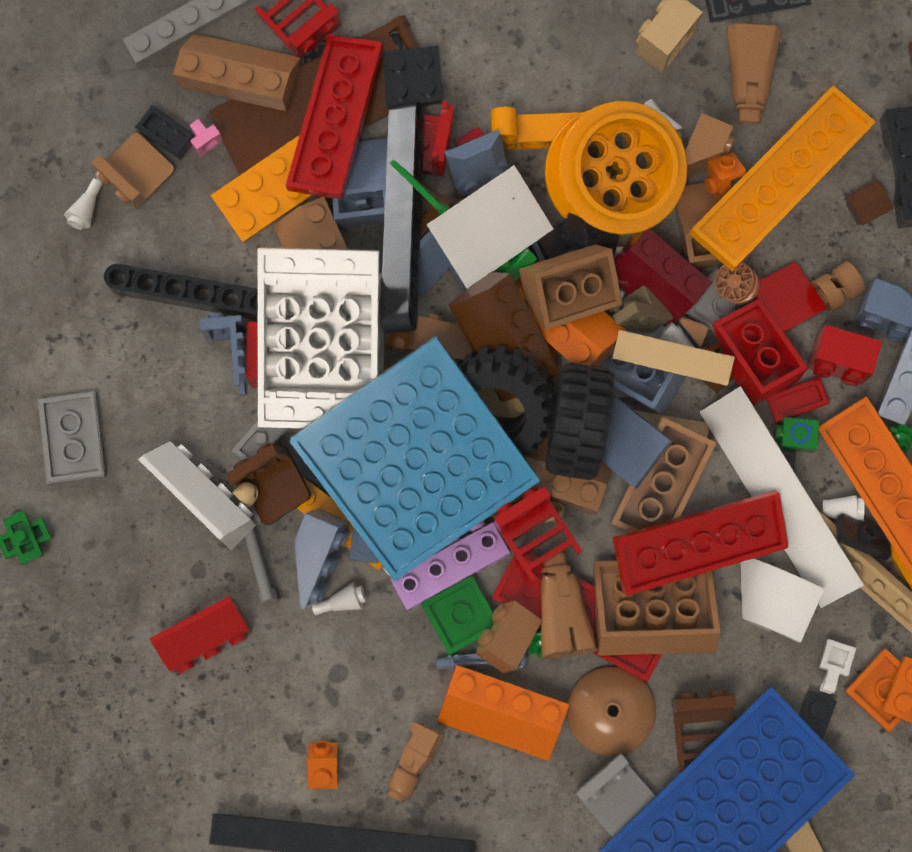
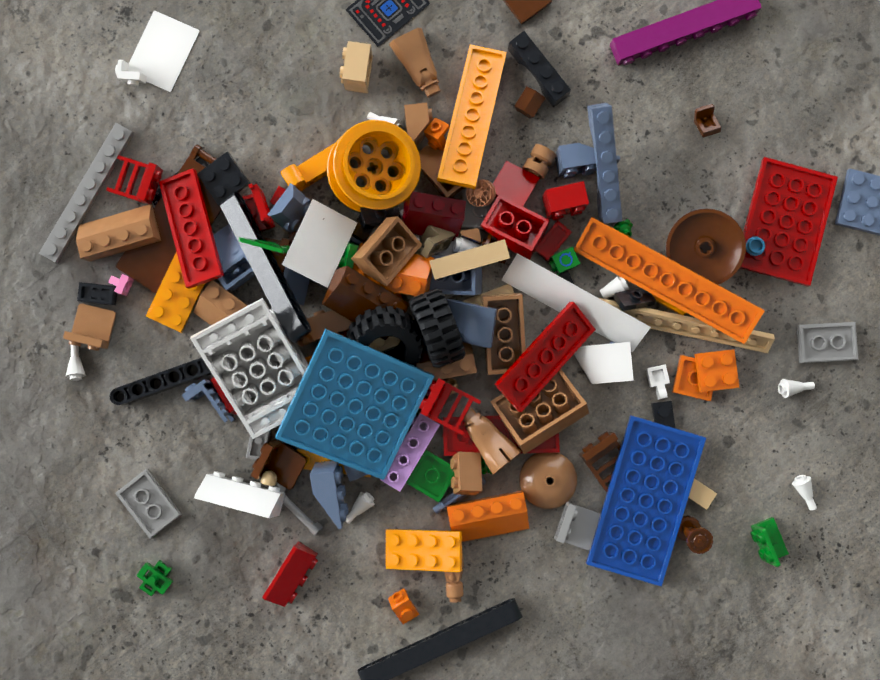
camera: 35 degrees left, 5 degrees up
(393, 705) = (424, 550): none -> light orange plate

